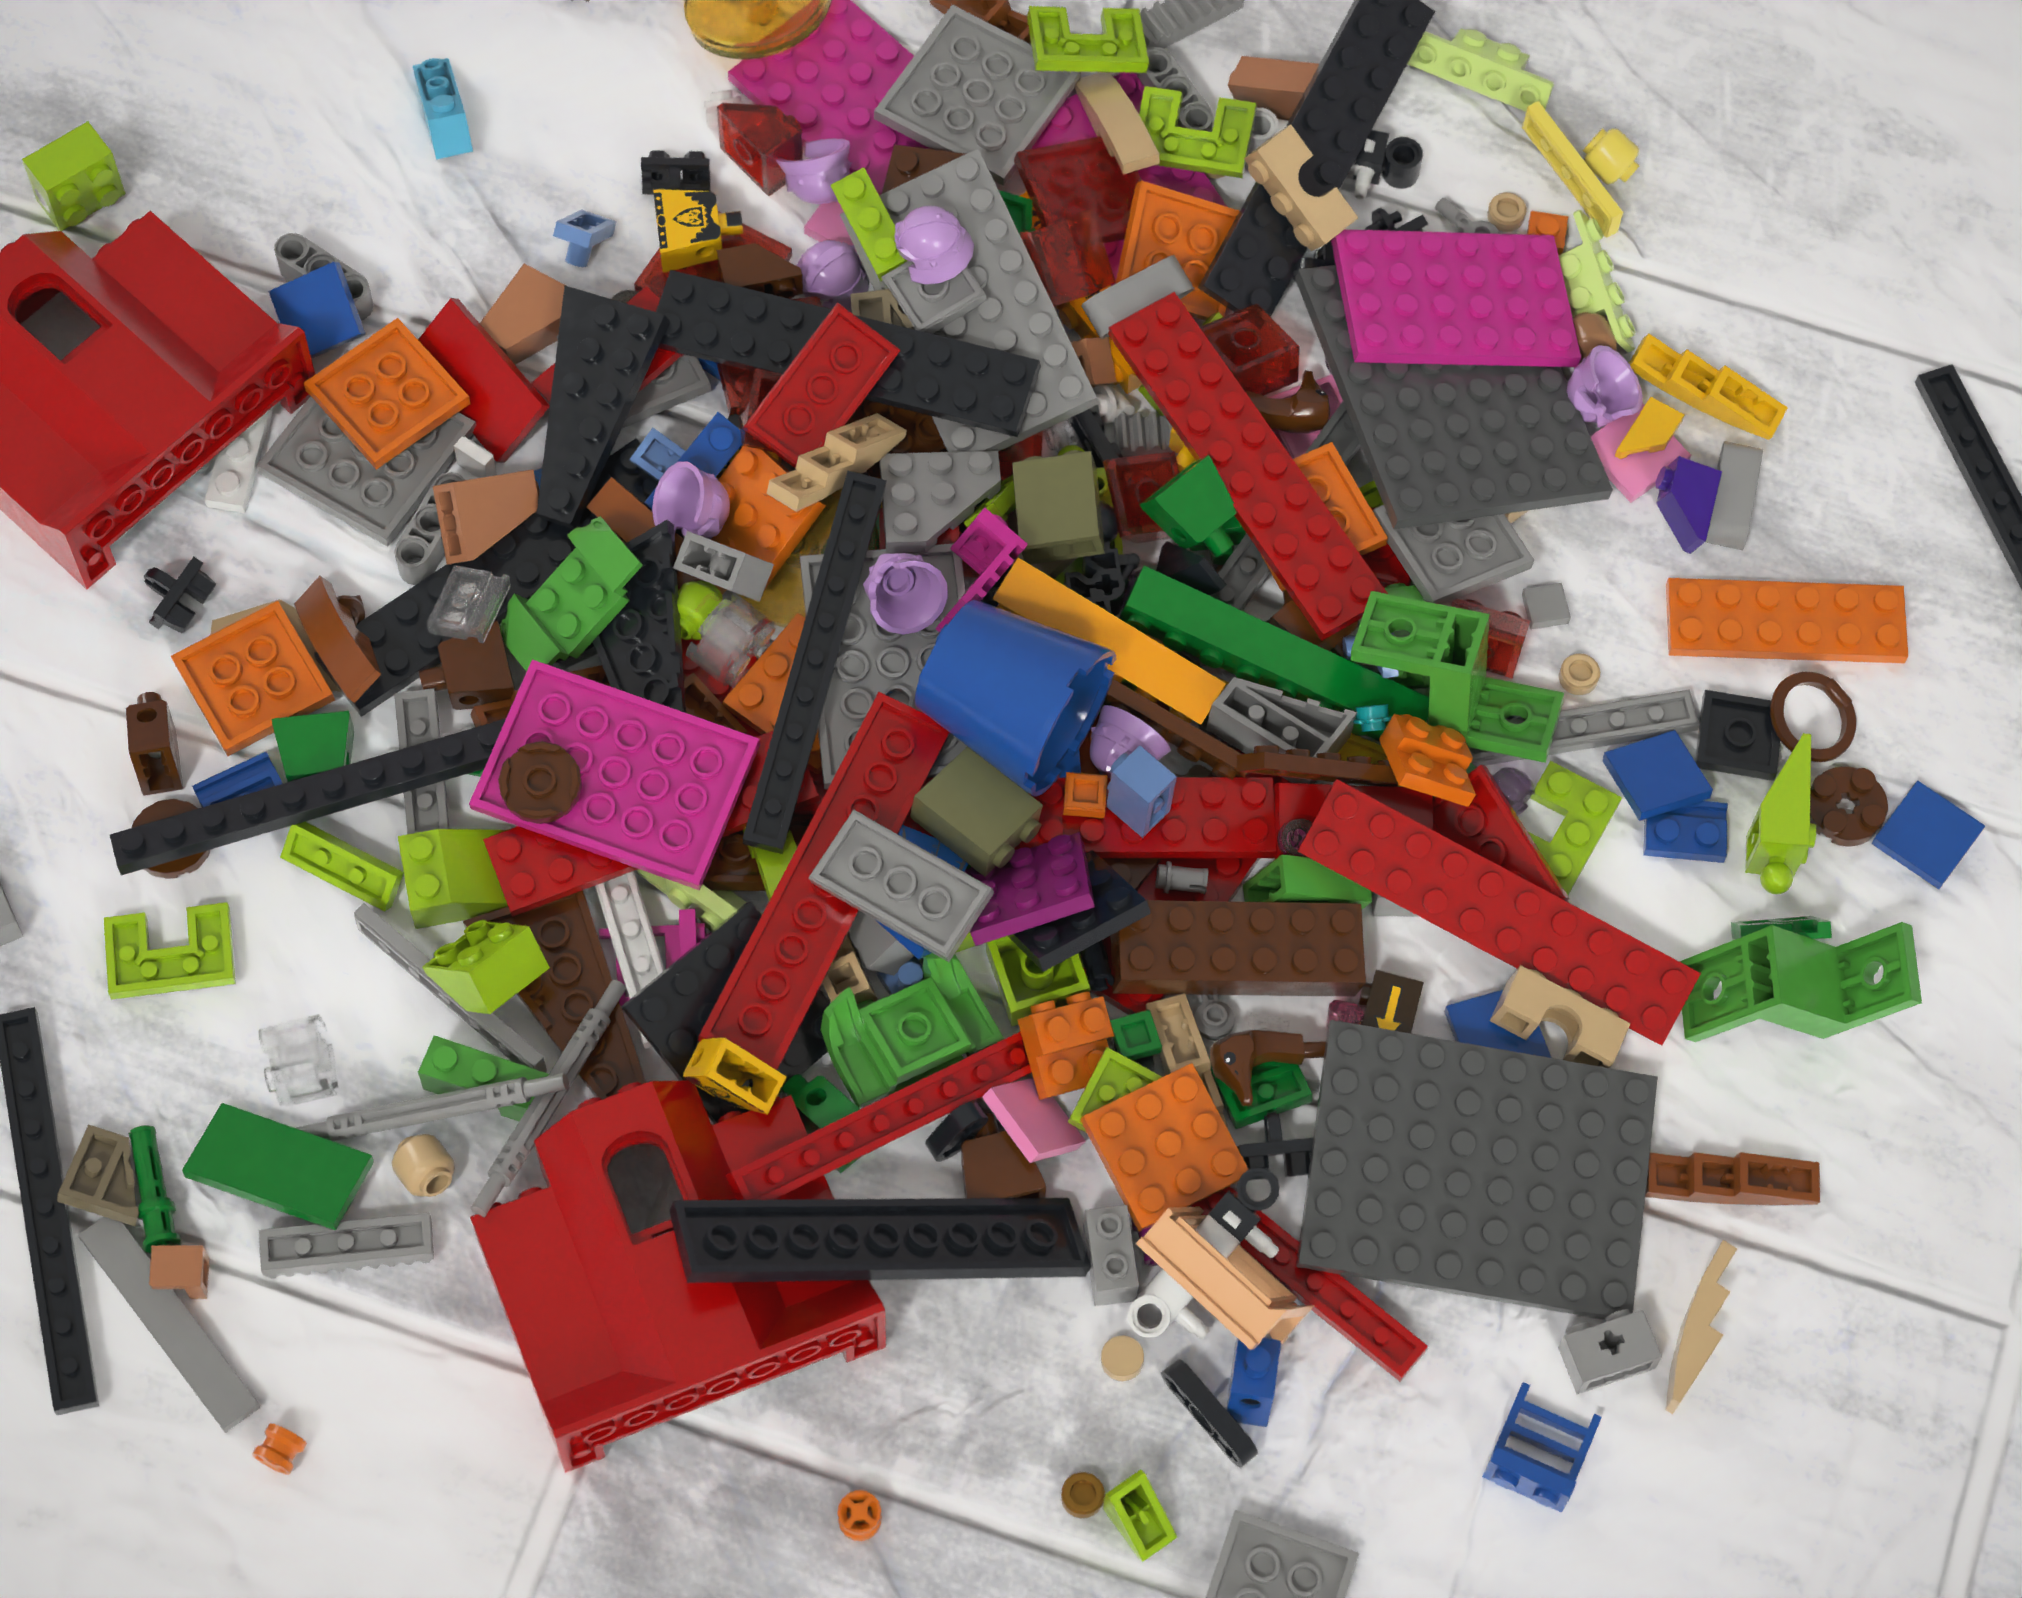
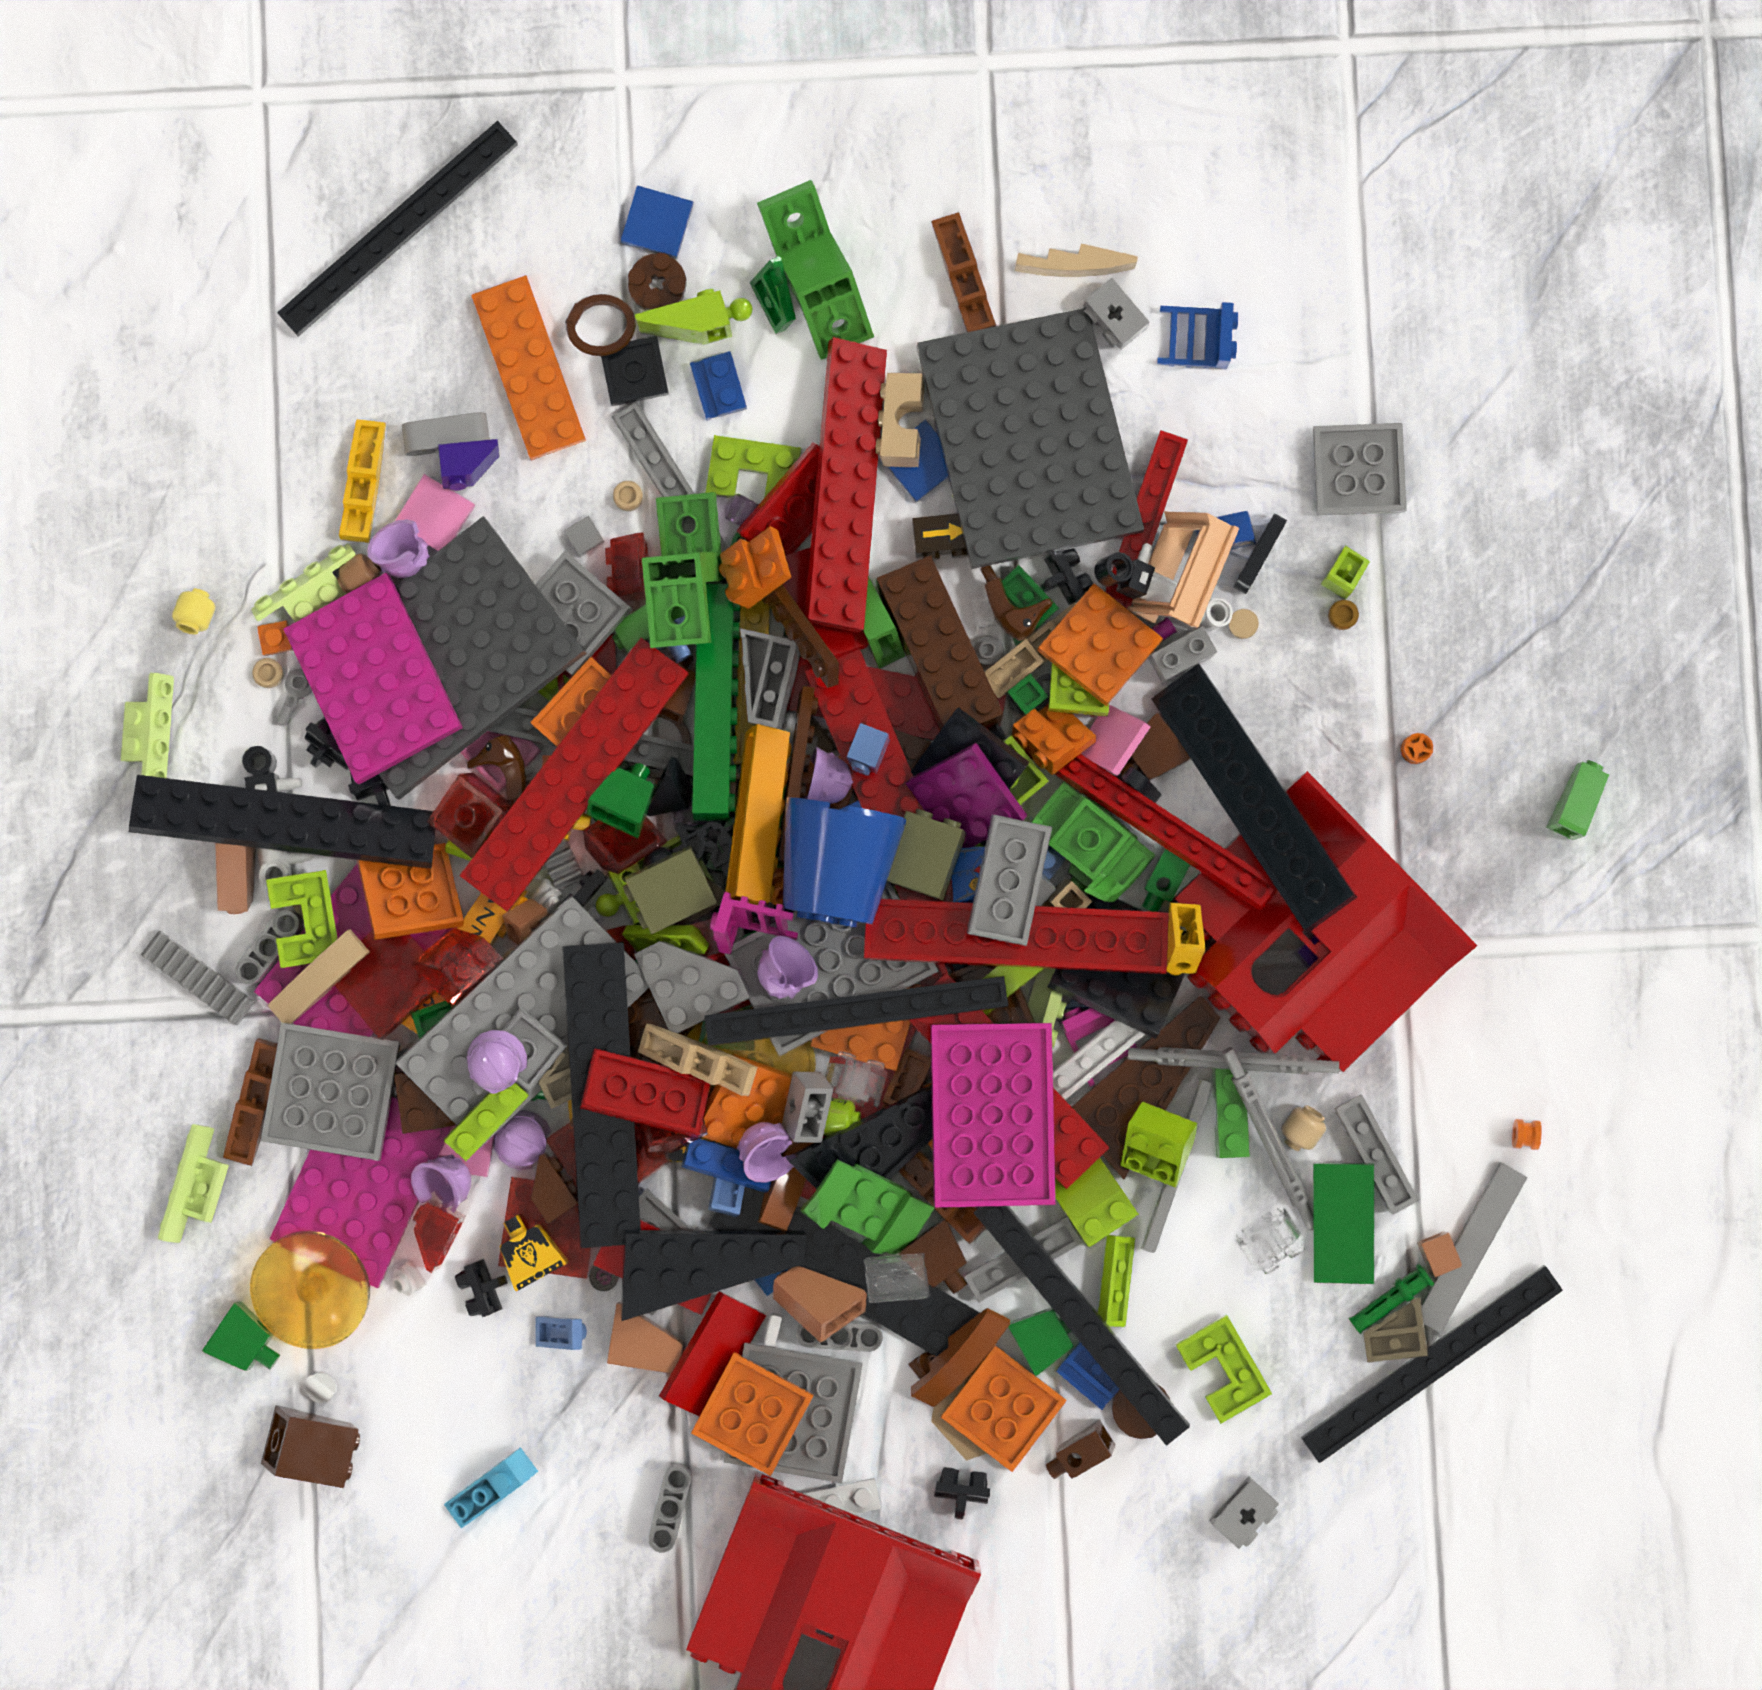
camera: 110 degrees left, 20 degrees up
(320, 307) = (706, 1495): blue tile -> none
(540, 782) = (1023, 1161): reddish brown tile -> none
(1085, 795) = (876, 790): orange tile -> none
(1116, 50) = (258, 1002): lime plate -> none
(1136, 293) = (467, 903): light grey beam -> none
(1181, 878) = (902, 706): light grey pin -> none
(1277, 168) = (323, 839): tan arch -> none
(1291, 836) = (847, 639): clear smoke tile -> none
(1344, 1012) = (954, 560): clear pink arm -> none
(1372, 717) = (735, 617): teal plate -> none
(1572, 169) = (216, 636): light yellow tile -> none
(1651, 429) = (417, 507): yellow tile -> none
(1657, 775) = (689, 416): blue tile -> none

